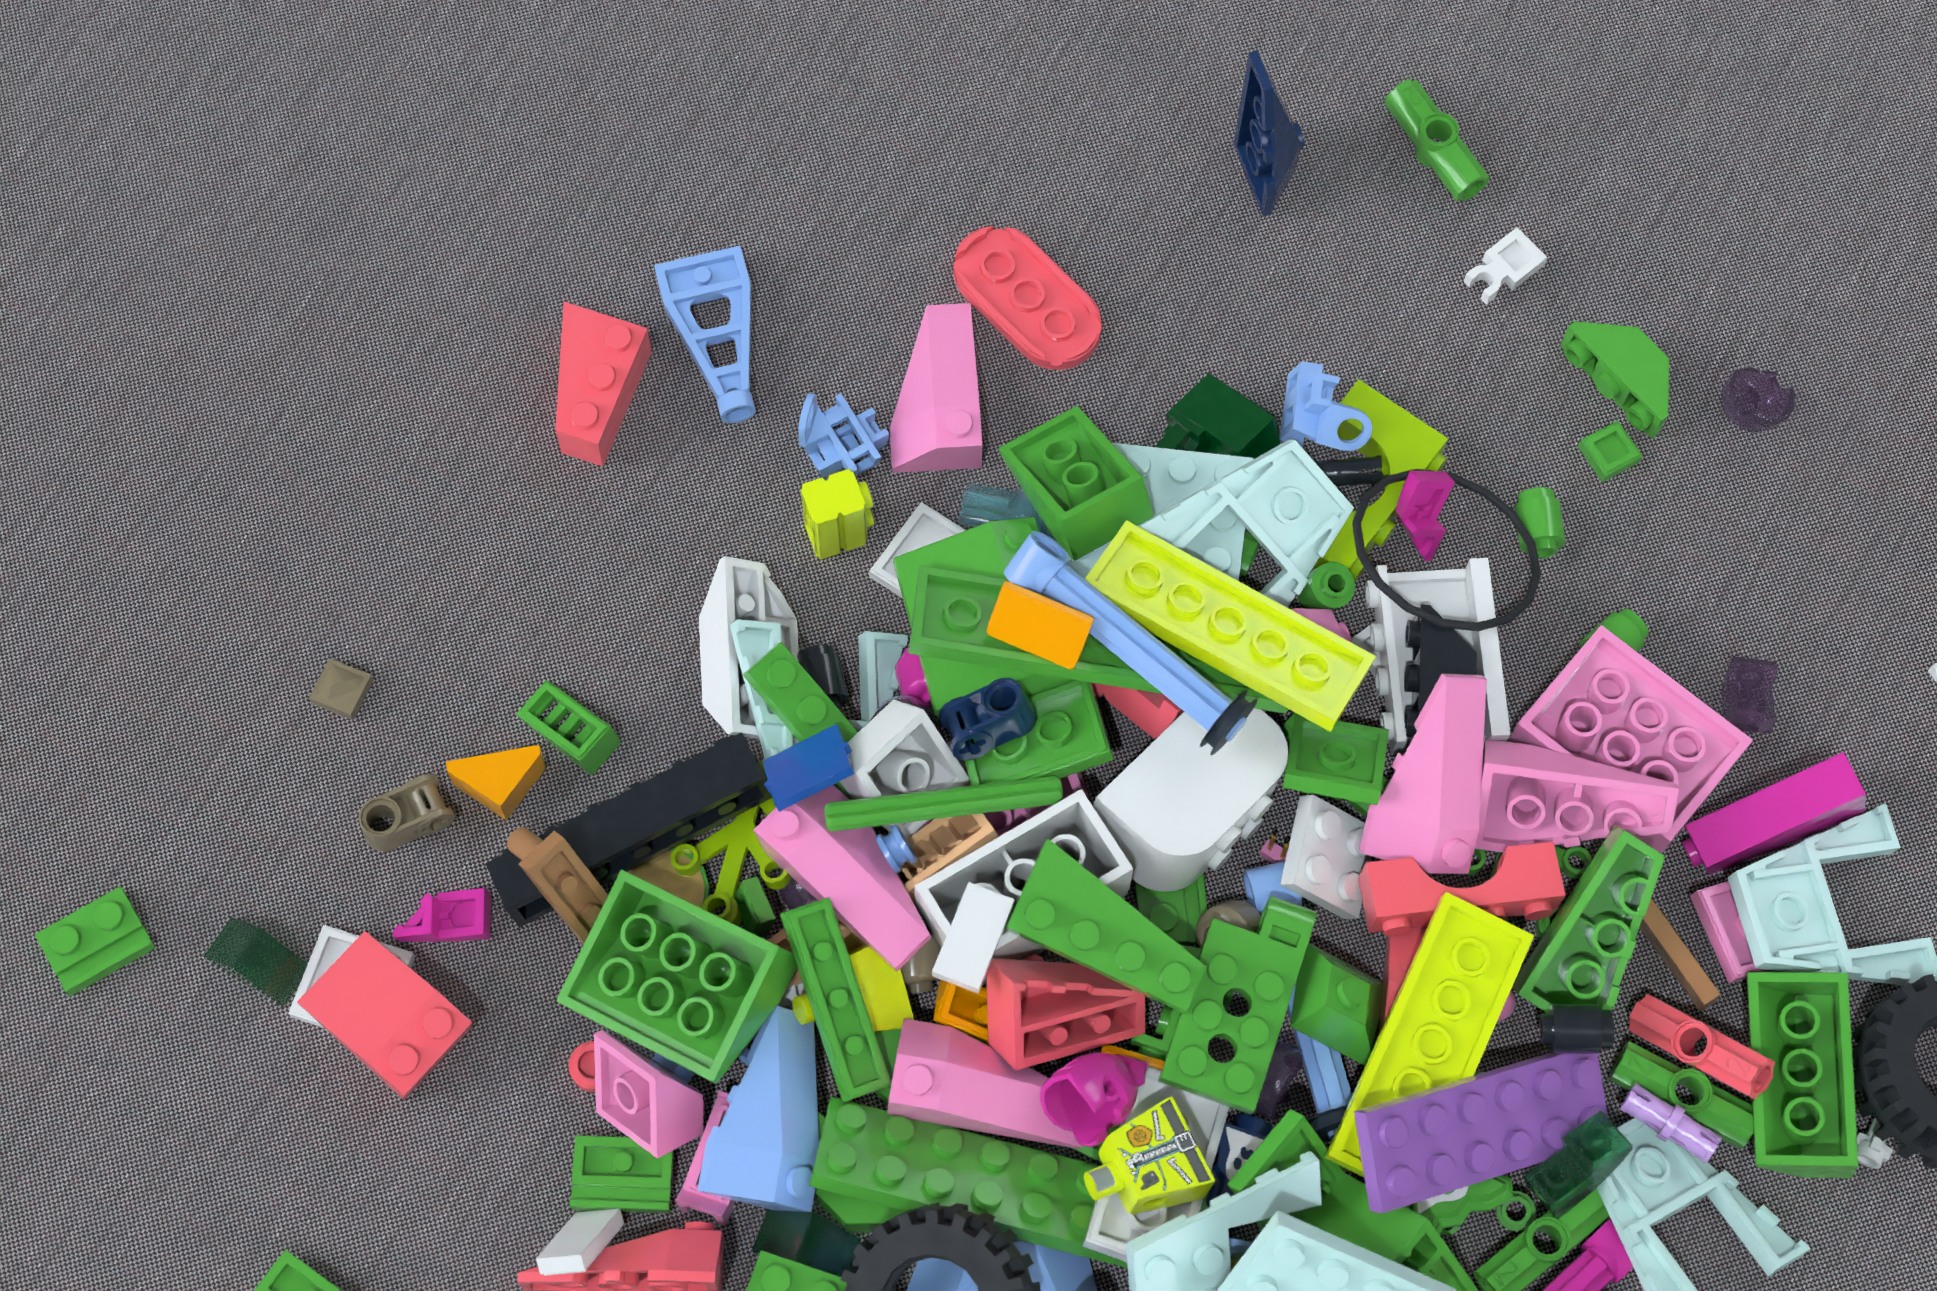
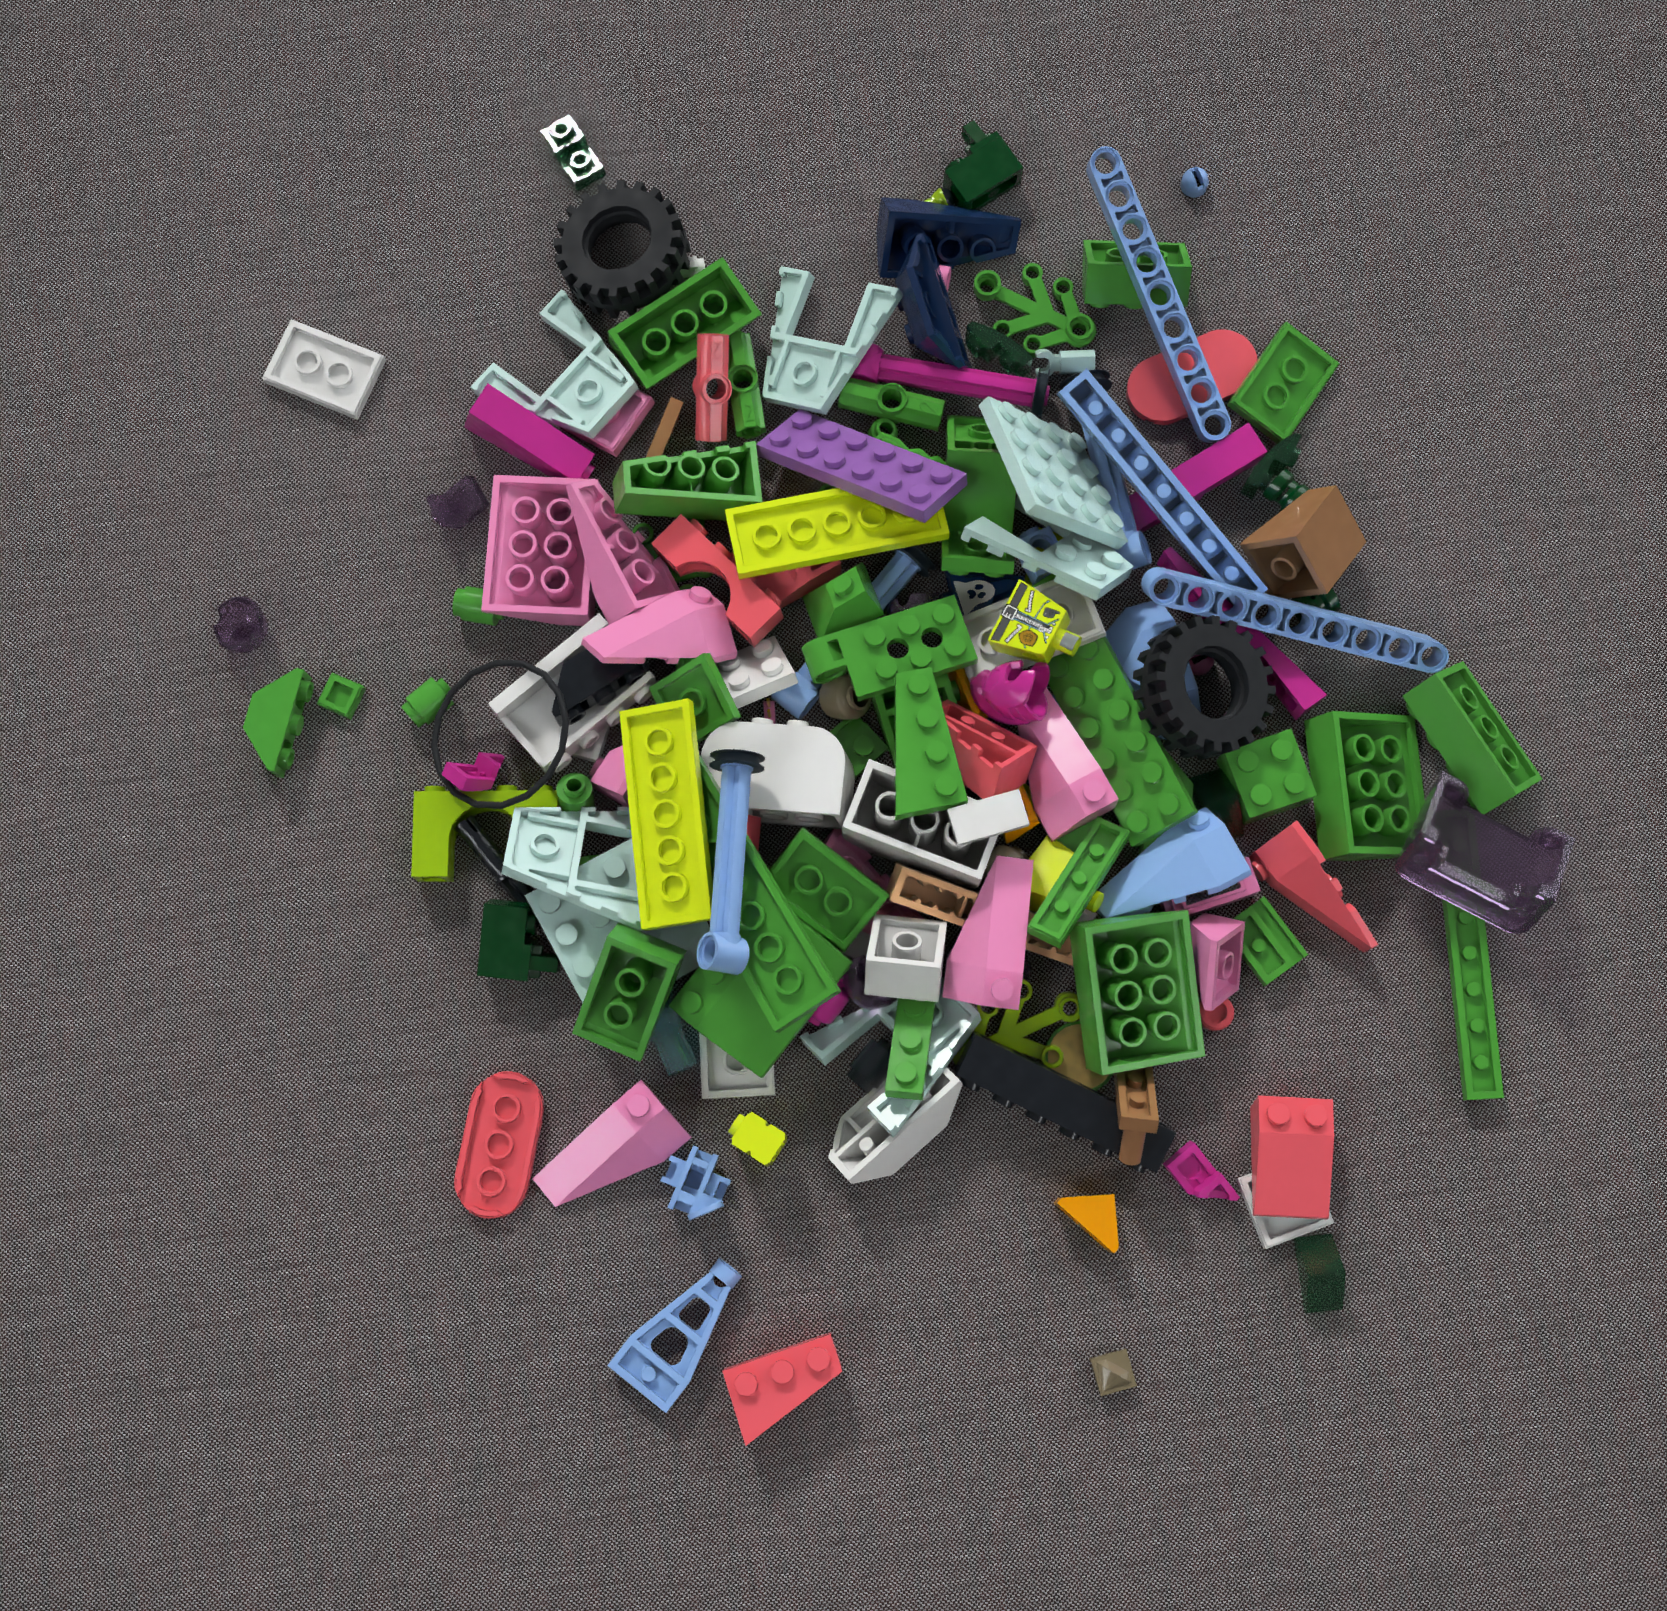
camera: 125 degrees left, 10 degrees up
(95, 941) = (1388, 1386): bright green plate -> none
(408, 811) = (1158, 1254): dark tan piece -> none
(579, 1242) = (1327, 926): white tile -> none
(589, 747) = (1026, 1171): bright green slope -> none
(755, 908) = (1049, 989): bright green tile -> none
(808, 767) = (953, 1007): blue piece -> none
(896, 848) = (960, 916): medium blue bush -> none
(943, 803) = (913, 906): bright green axle -> none
(989, 717) = (841, 928): dark blue piece -> none
(1039, 625) = (764, 919): light orange slope -> none
(1265, 136) = (273, 1060): dark blue wedge -> none
(1313, 414) = (461, 878): light blue piece -> none
(1449, 158) = (173, 979): bright green piece -> none
(1507, 262) = (245, 846): white plate -> none
(1577, 1029) = (761, 452): black brick -> none
(1581, 1166) = (838, 404): clear green slope -> none
(1670, 1123) = (770, 376): lavender pin -> none

